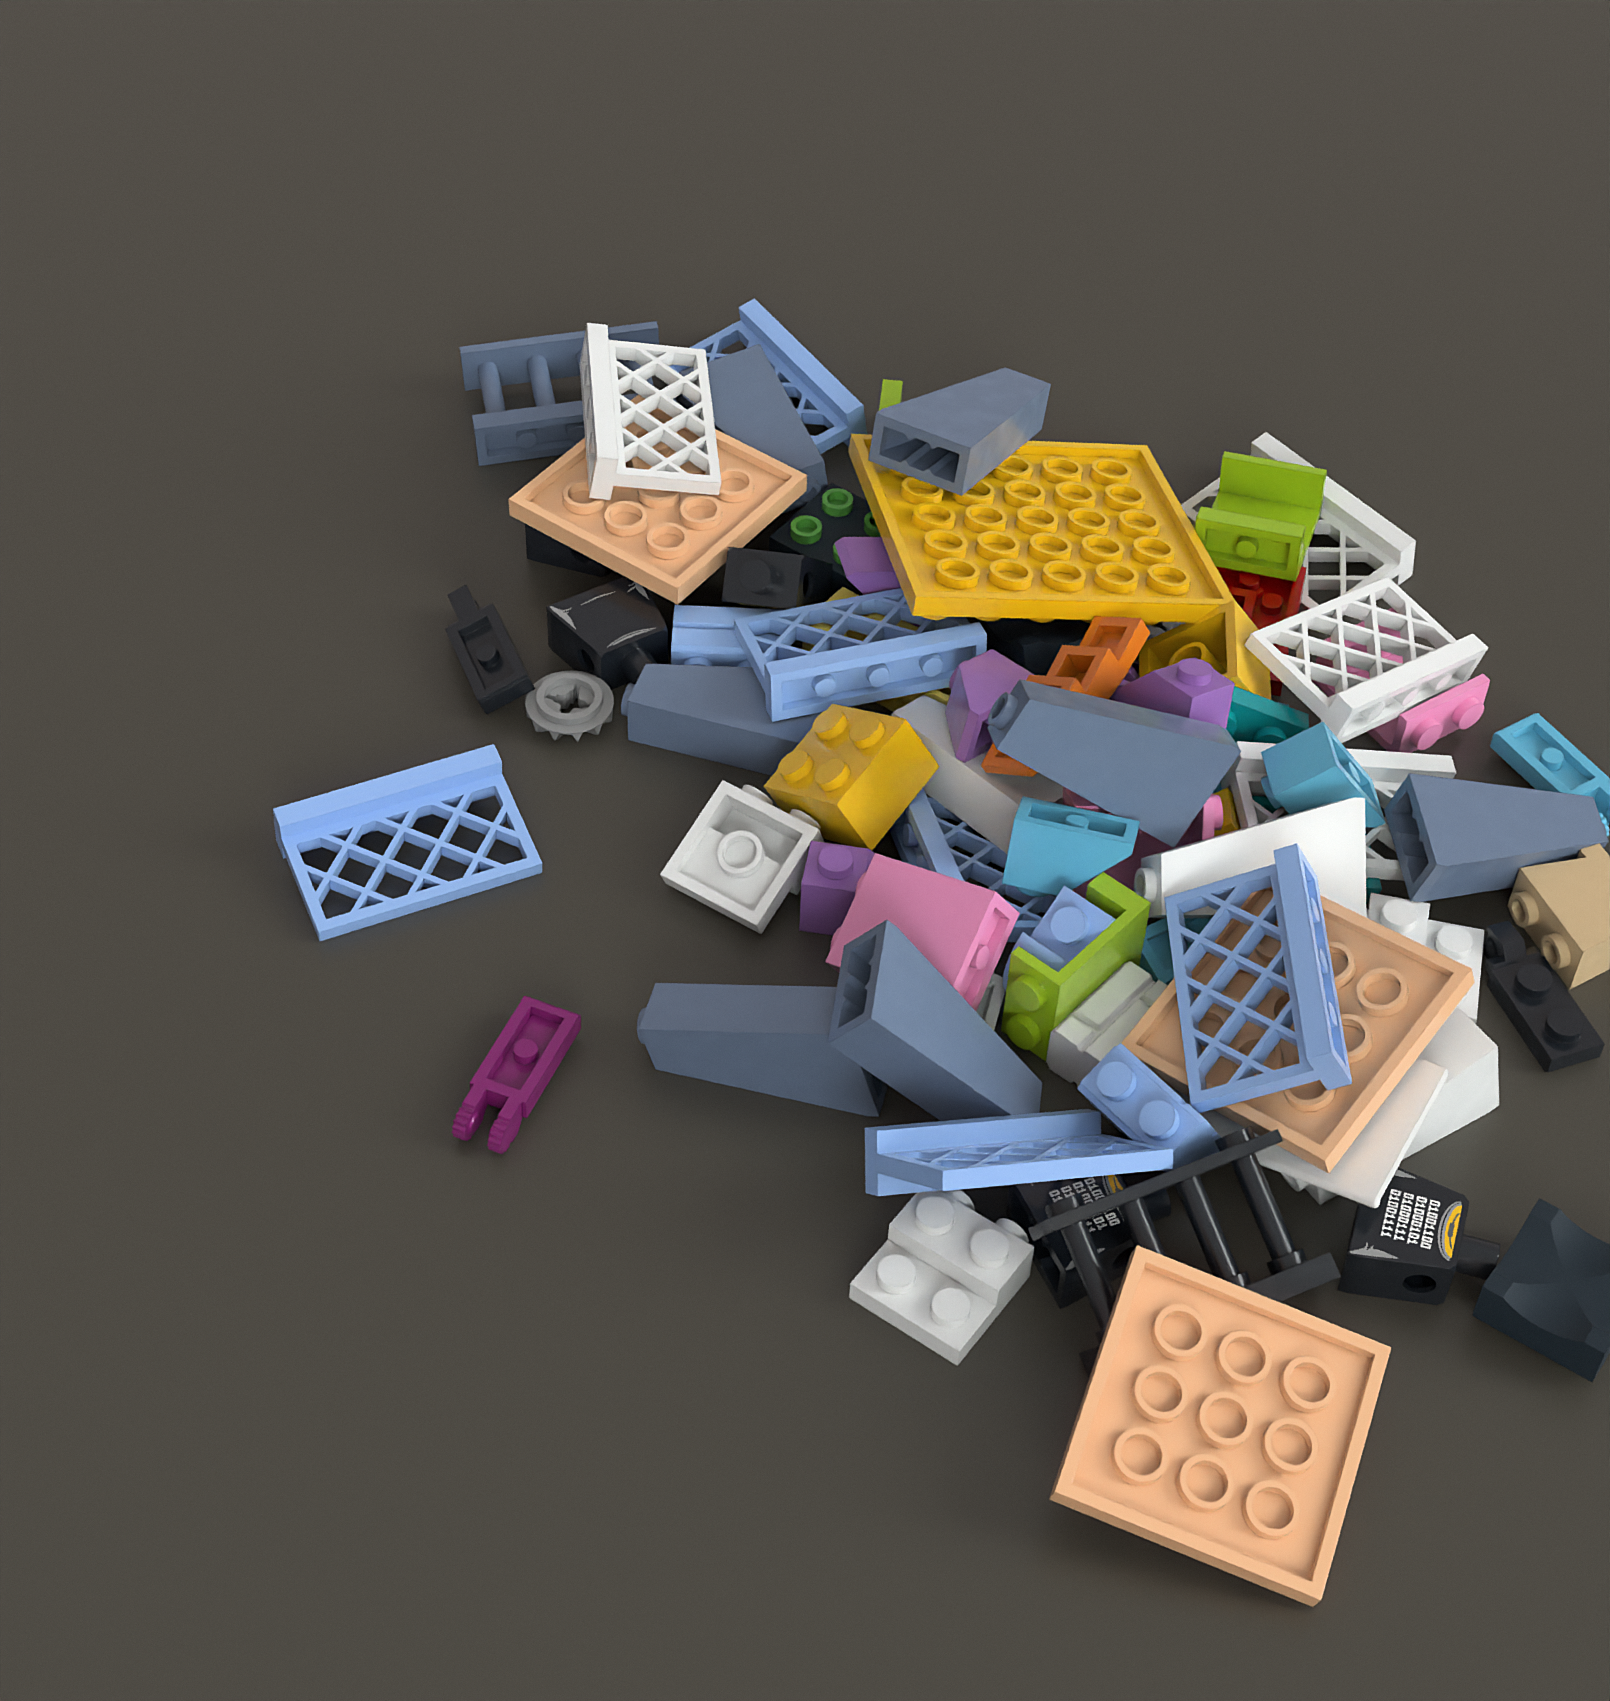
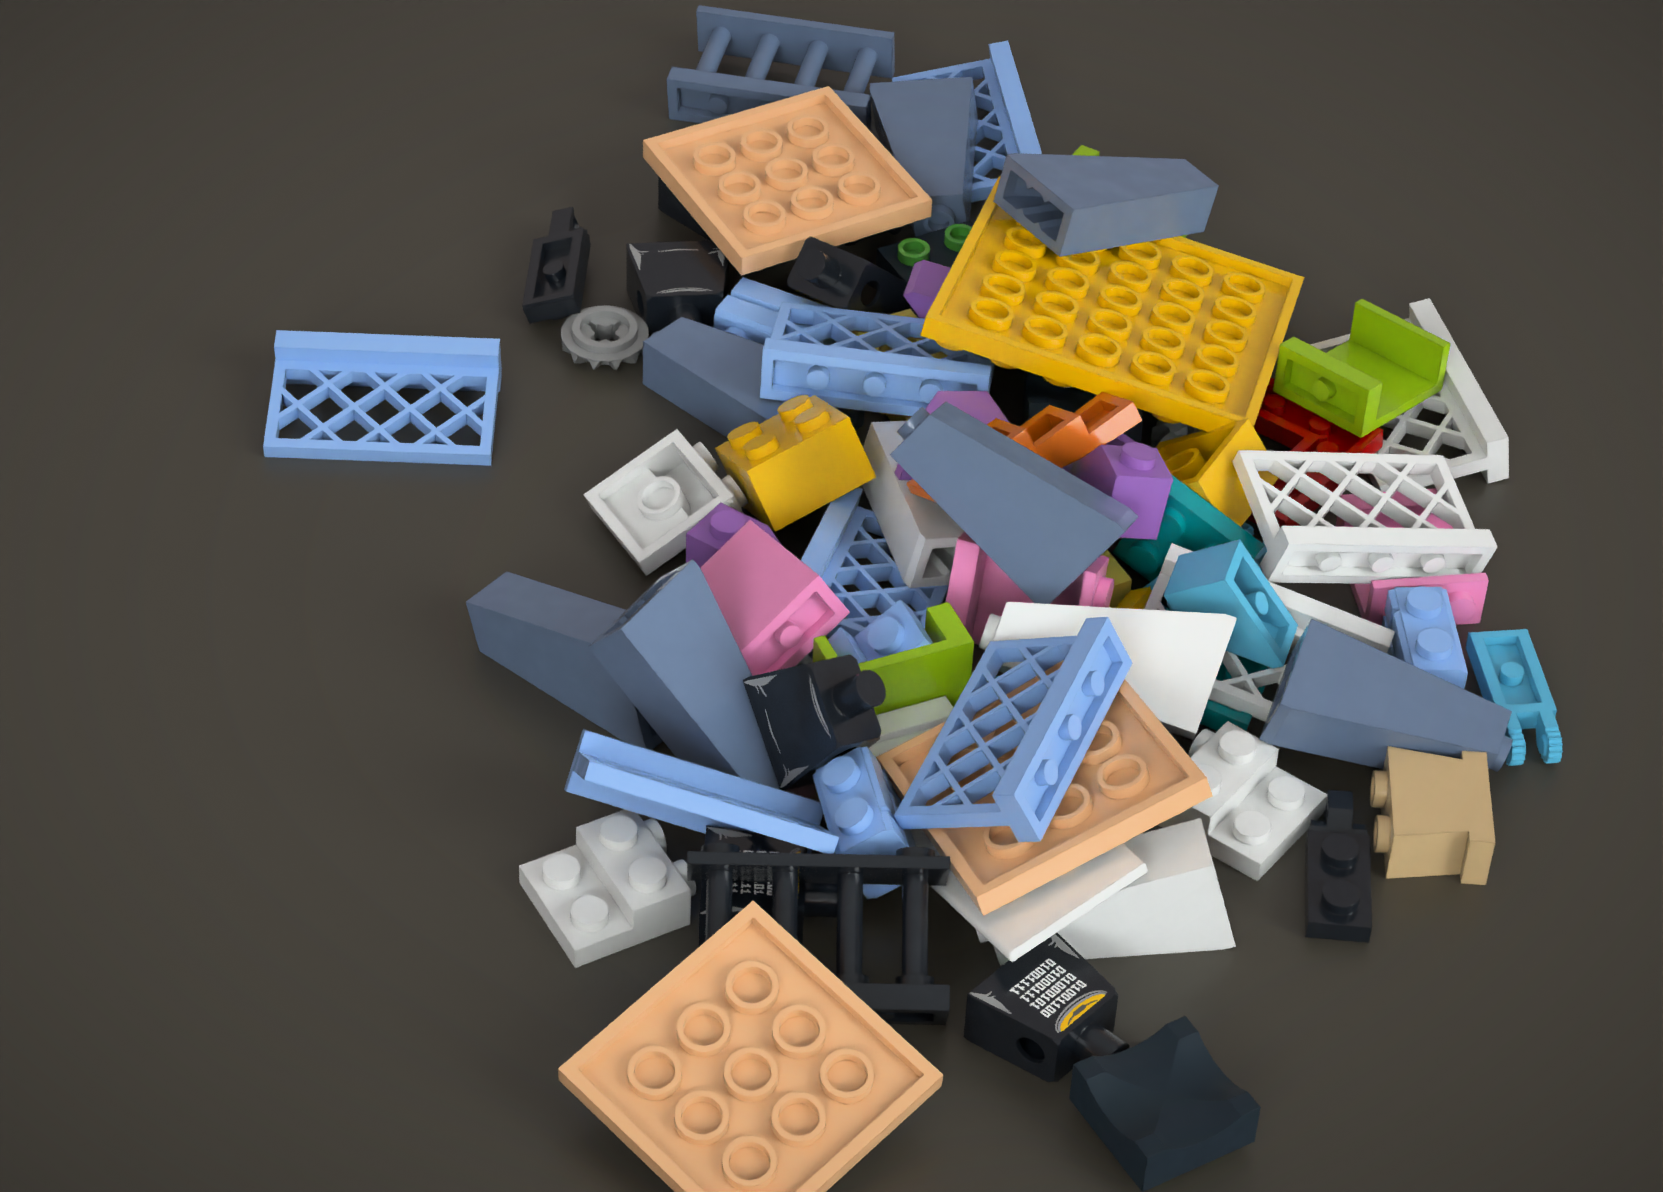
camera: 25 degrees right, 5 degrees down
(517, 1070) = (350, 608): magenta hinge -> none
(608, 413) = (777, 87): white fence -> none
(1056, 1027) = (814, 715): none -> black torso
(1063, 846) = (925, 566): medium azure slope -> none
(1475, 747) = (1425, 632): none -> light blue brick

